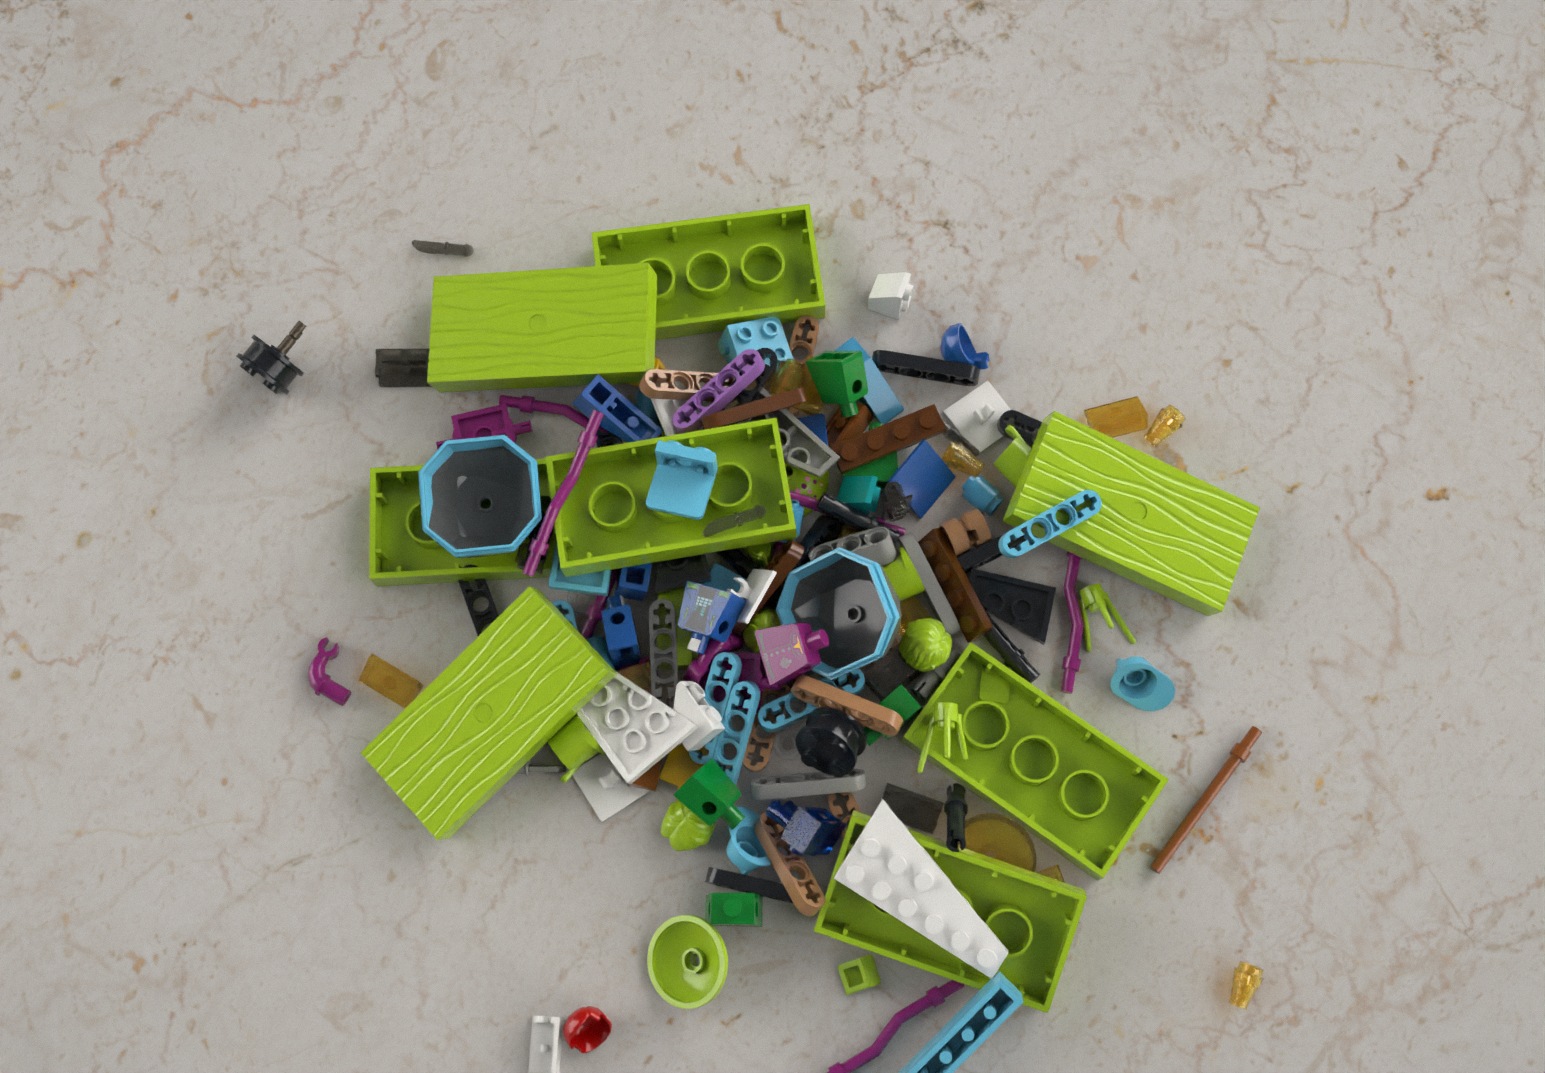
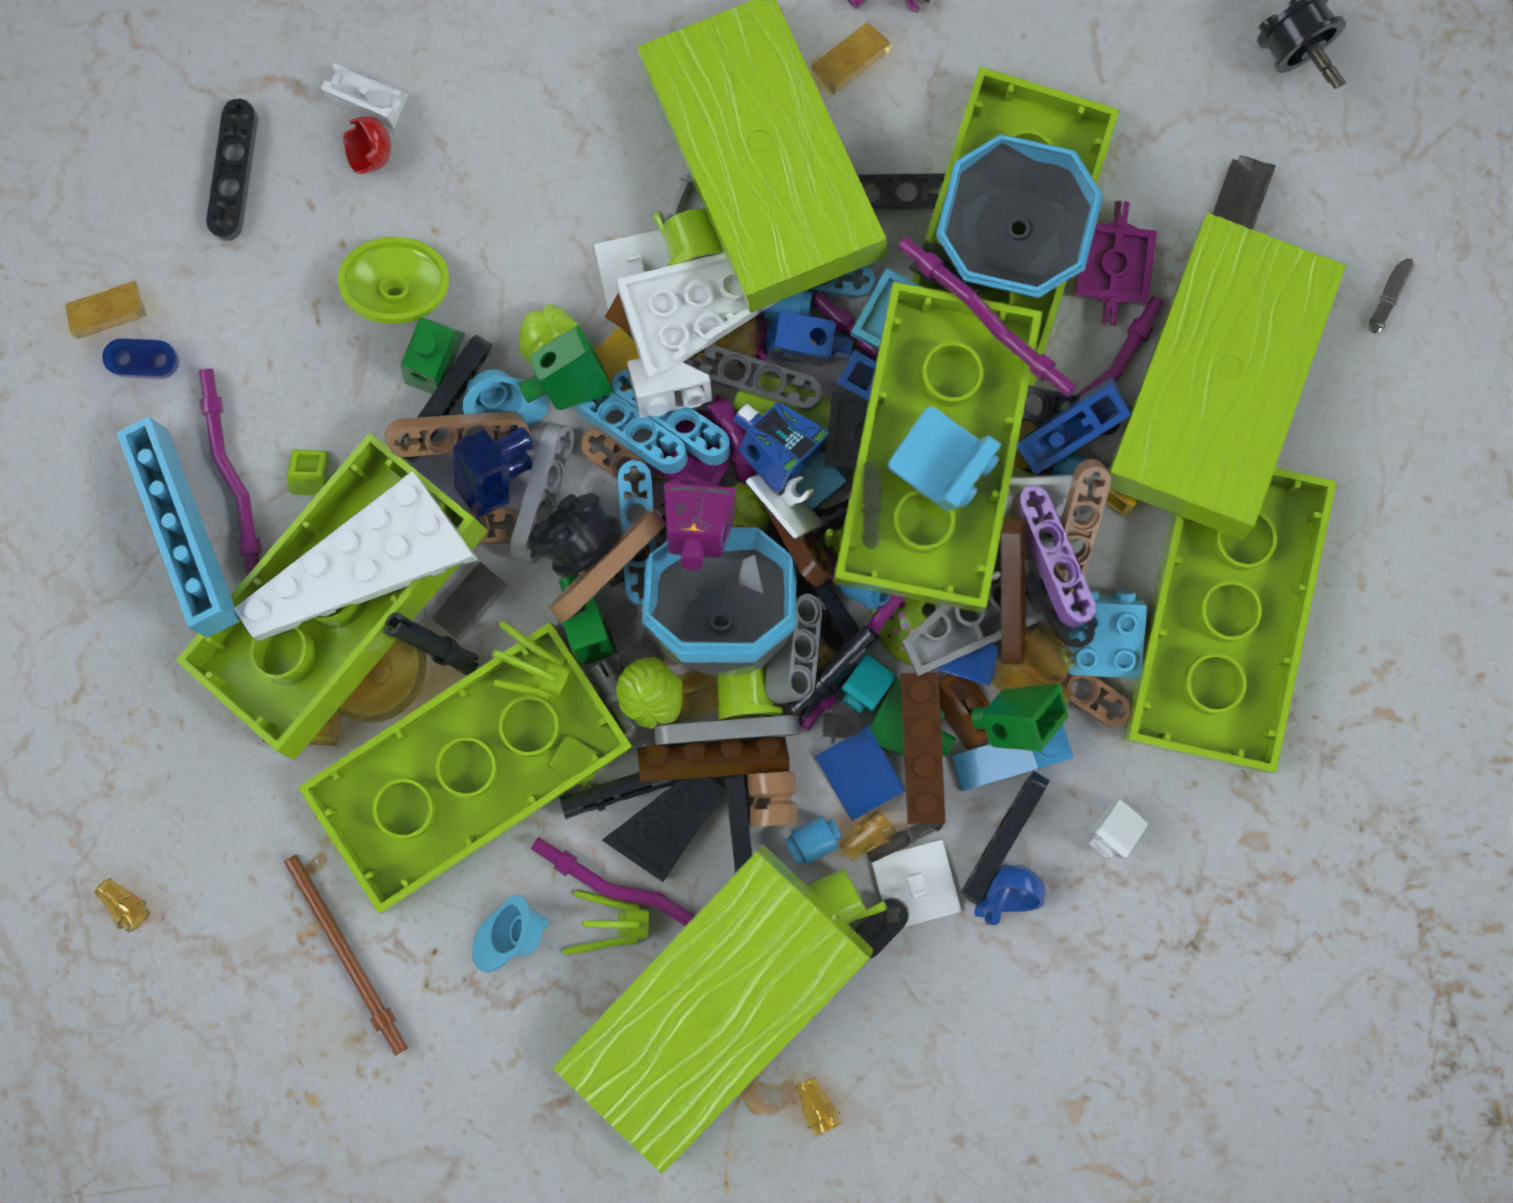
camera: 110 degrees right, 10 degrees up
(1050, 524) = (730, 891): medium azure beam -> none
(1118, 417) = (851, 1053): clear yellow slope -> none

